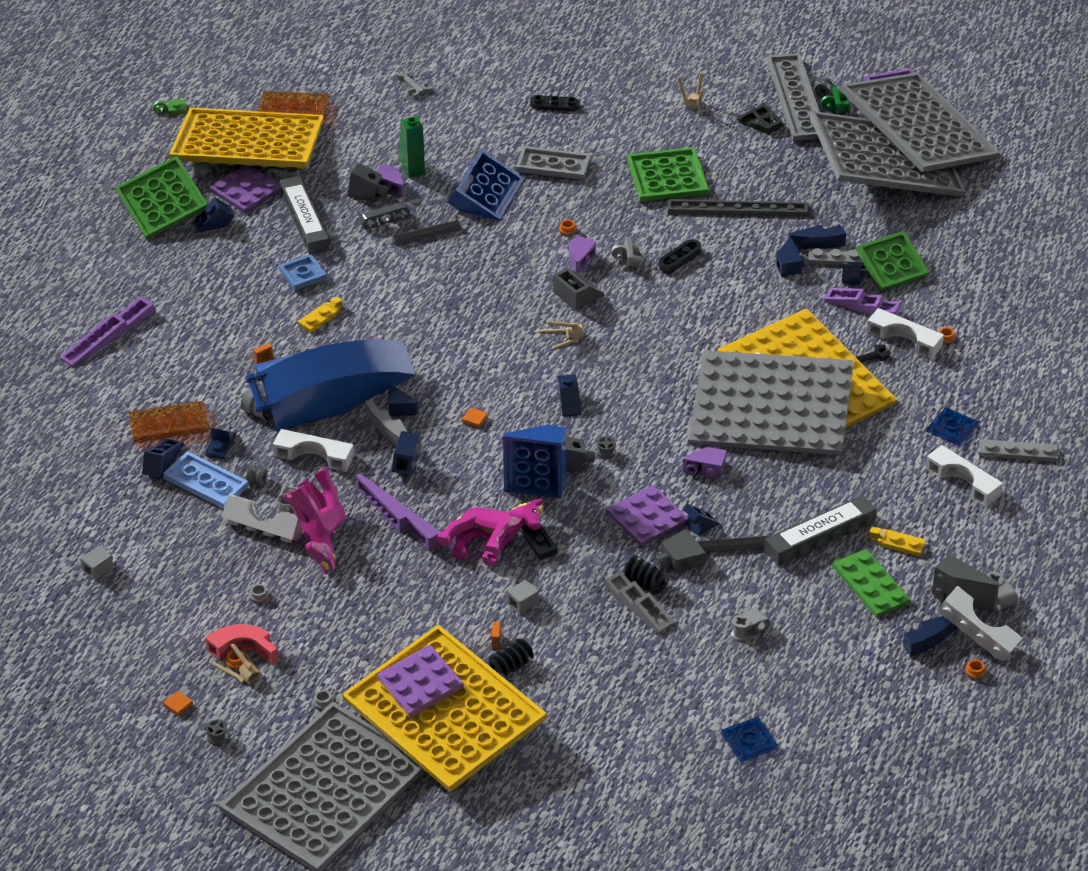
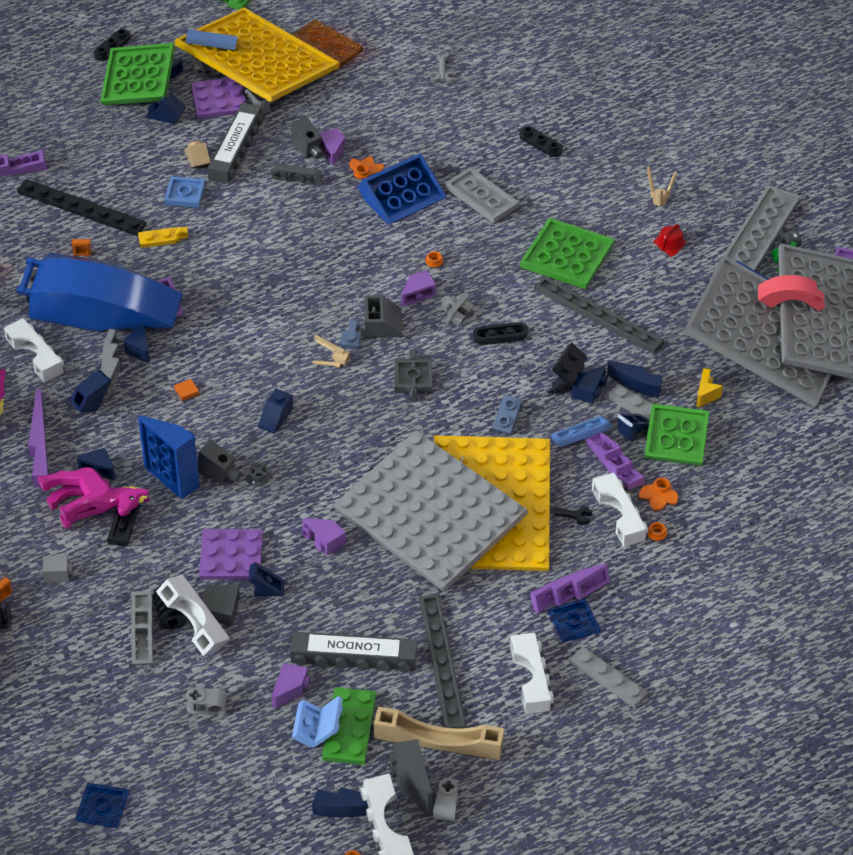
camera: 35 degrees right, 5 degrees up
(101, 188) = (116, 40): none -> black plate
(202, 140) = (211, 39): none -> medium blue tile
(223, 325) = (81, 207): none -> black plate
(282, 237) = (197, 154): none -> tan slope
(412, 147) = (366, 123): green slope -> none
(426, 232) = (317, 206): dark grey axle -> none
(433, 187) = (365, 167): none -> orange plate
(467, 500) = (99, 461): none -> dark blue slope
(564, 314) = (351, 338): none -> sand blue plate
(646, 318) = (413, 375): none -> dark grey plate
(662, 558) = (180, 595): none -> white arch
(733, 543) = (268, 618): dark grey axle -> none
(734, 129) = (670, 240): none -> red piece
(751, 309) = (507, 414): none -> sand blue plate
(761, 118) = (703, 242): pearl dark grey wing -> none
(769, 255) = (567, 367): none -> black bracket
(798, 577) = (290, 684): none -> medium lavender slope
(817, 294) = (581, 431): none -> medium blue tile
(854, 588) = (316, 724): none -> light blue bracket
(877, 221) = (707, 391): none -> yellow slope
(883, 112) = (791, 288): none -> coral arch
(890, 505) = (442, 662): none -> dark grey tile
(897, 541) = (412, 700): yellow hinge -> none
(919, 309) = (658, 496): none -> orange plate
(929, 402) = (570, 586): none -> medium lavender slope
(980, 539) = (476, 741): none -> tan arch

